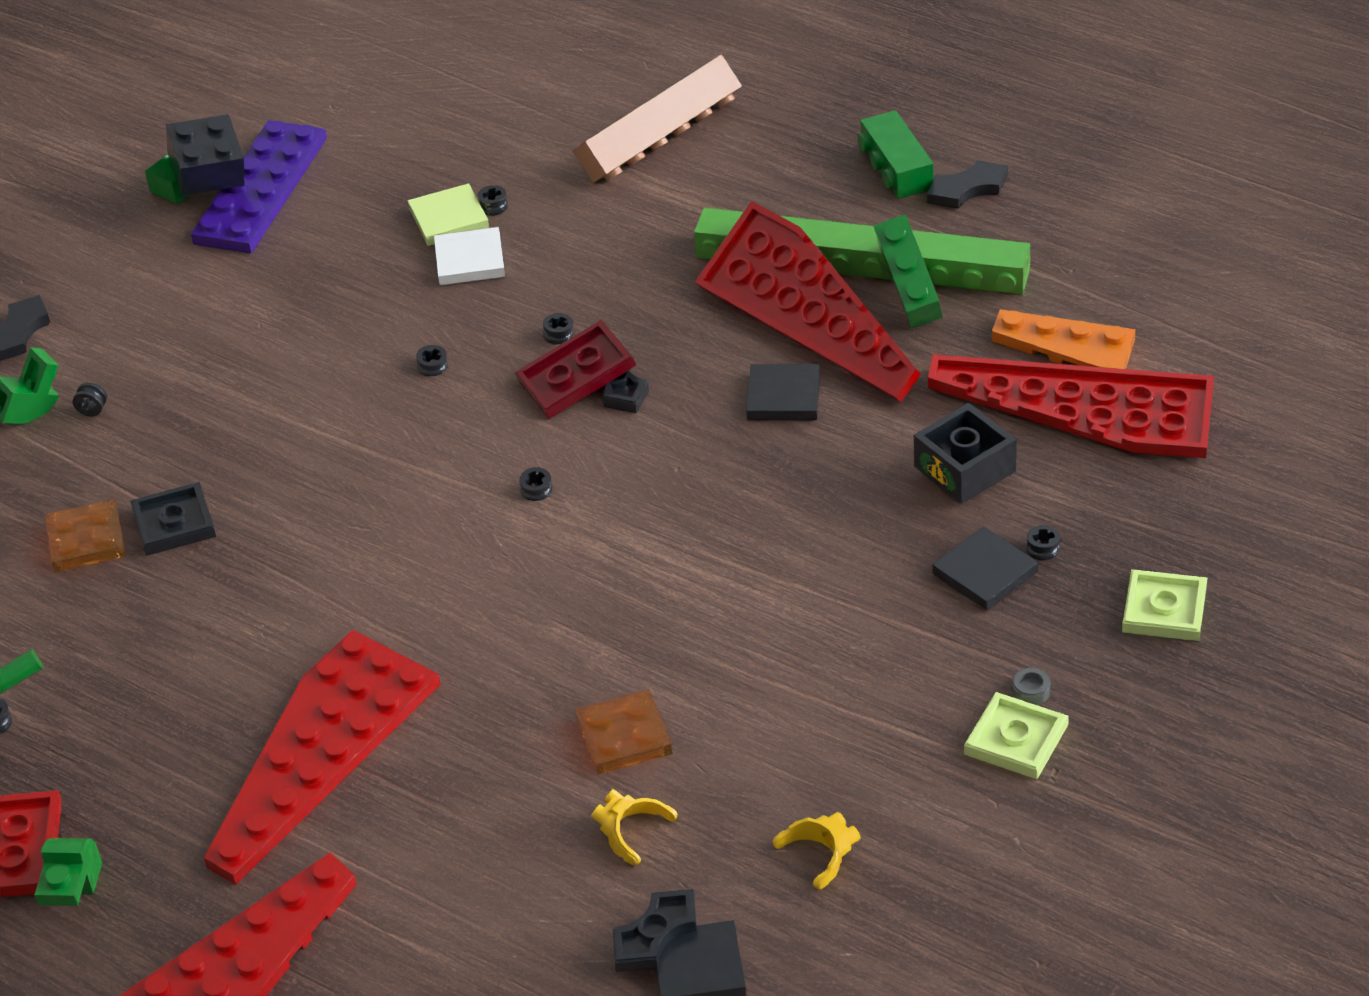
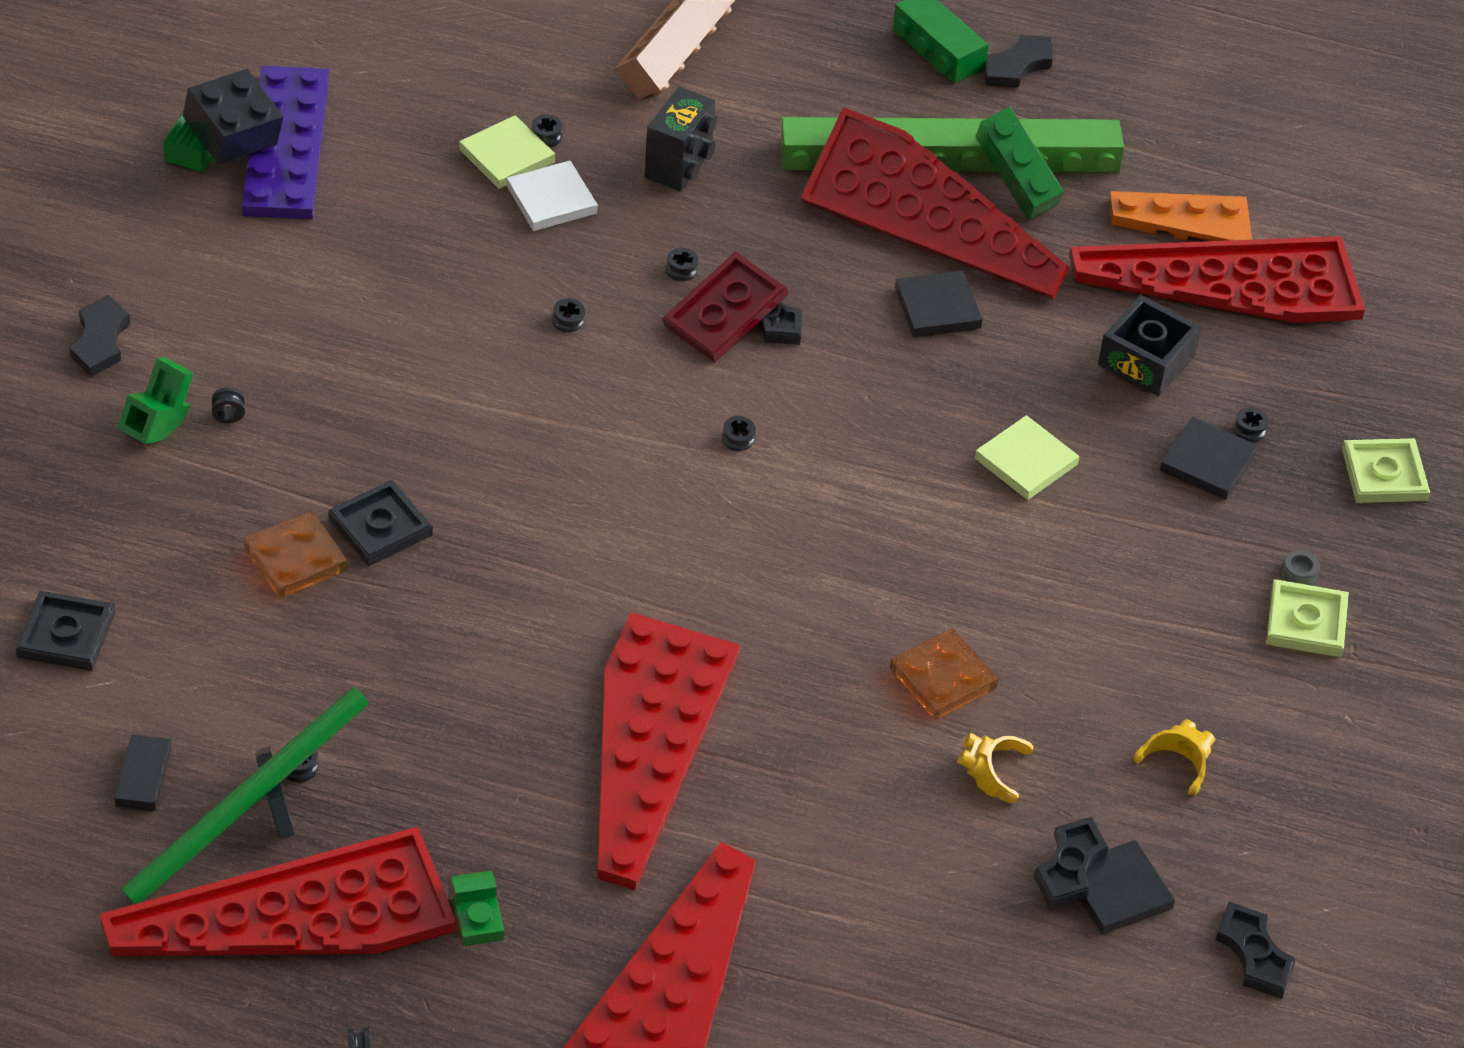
camera: 25 degrees left, 5 degrees up
(598, 216) = (680, 139): none -> black brick
(802, 543) = (1027, 457): none -> yellowish green tile

